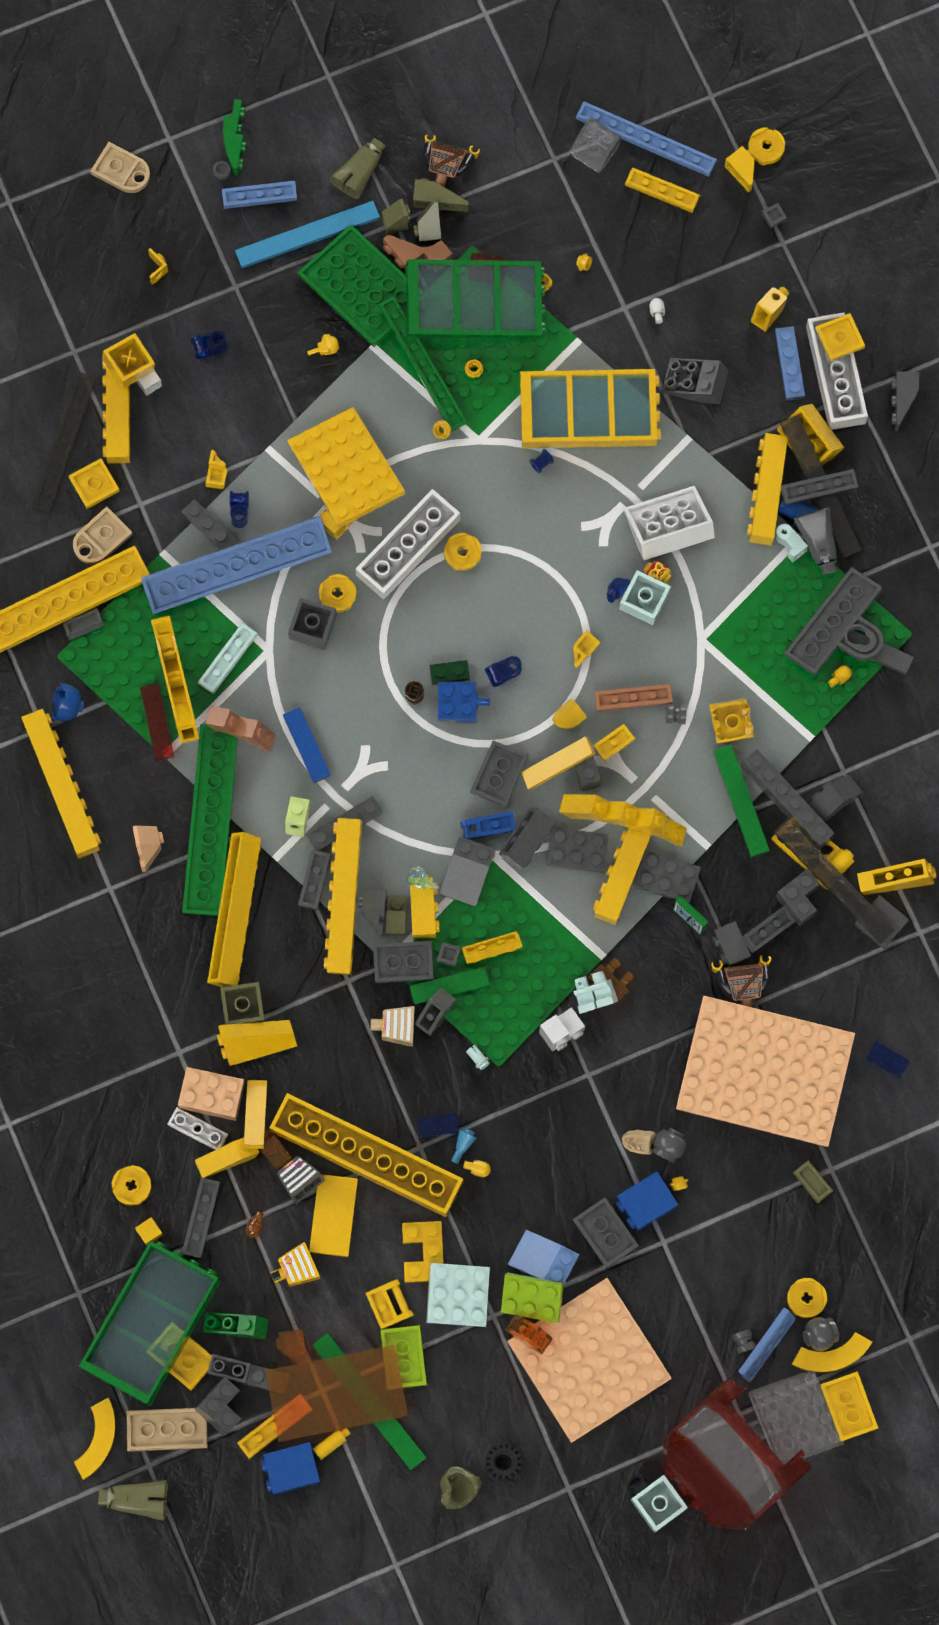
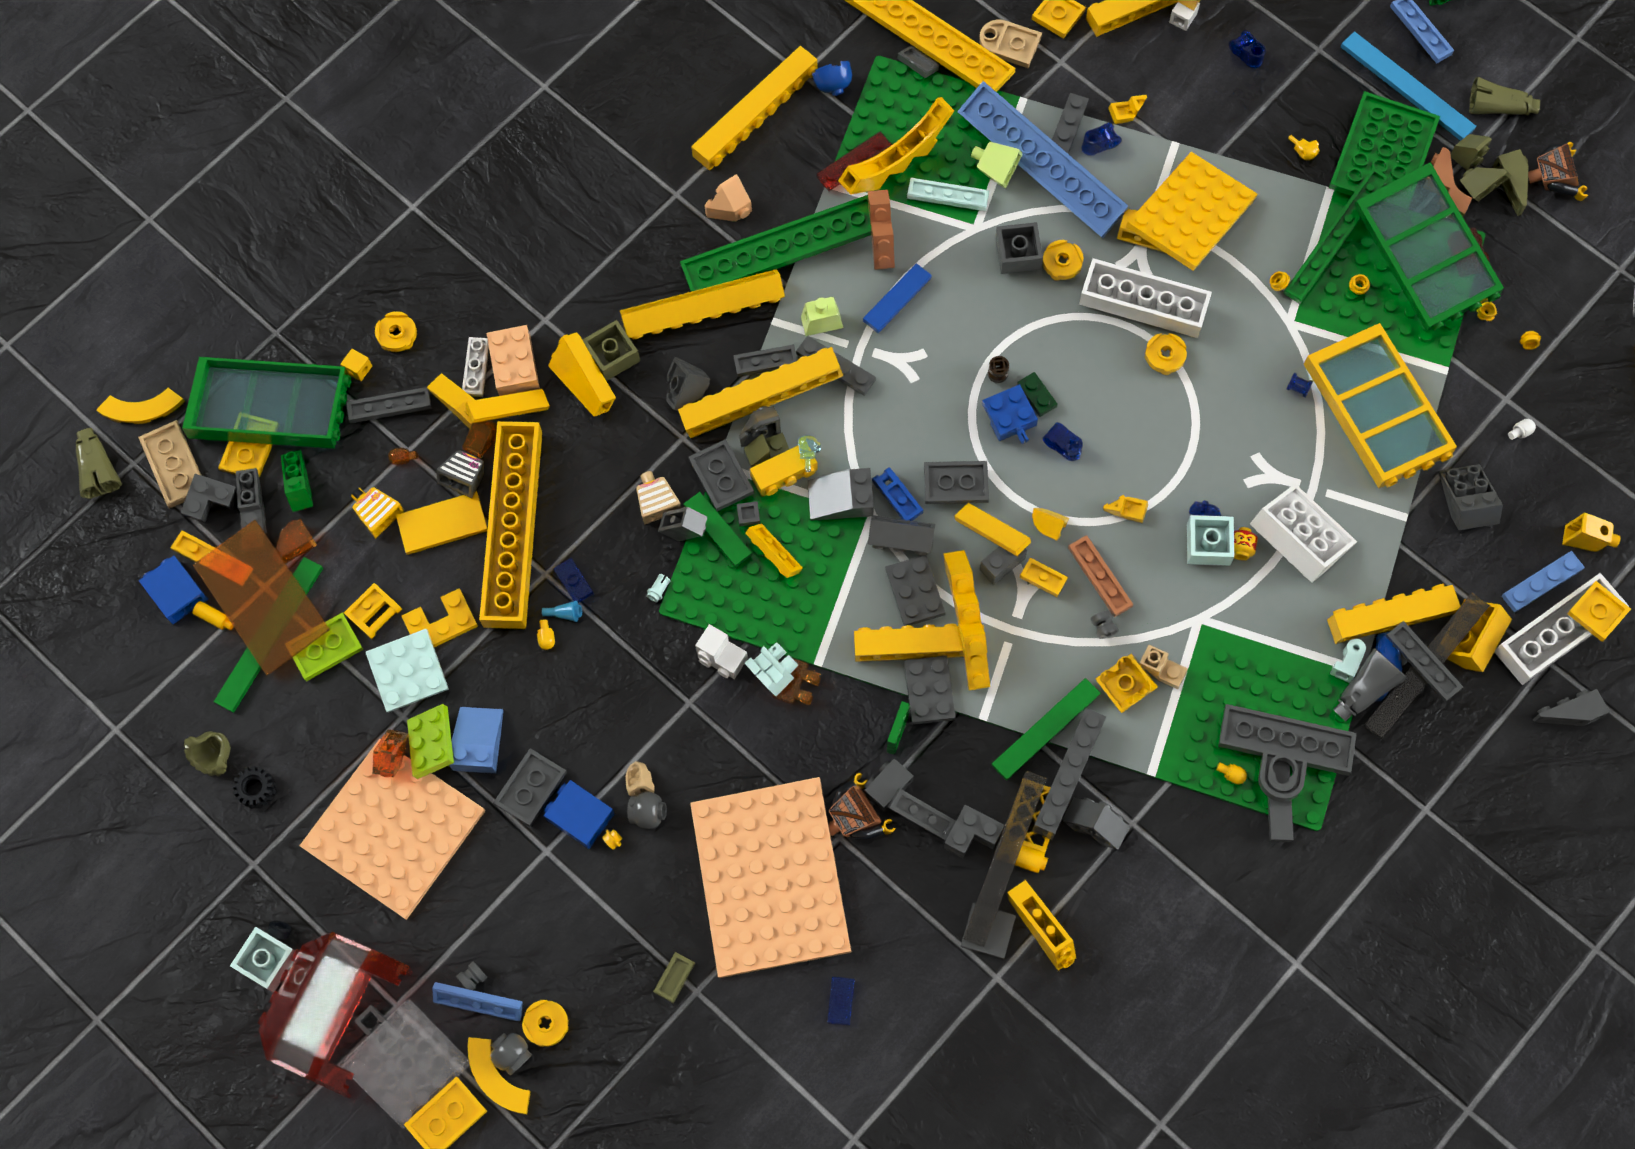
camera: 70 degrees right, 5 degrees down
(221, 603) = (997, 162): none -> yellowish green torso
(302, 956) = (686, 383): none -> dark grey slope
(733, 686) = (1164, 670): none -> tan slope

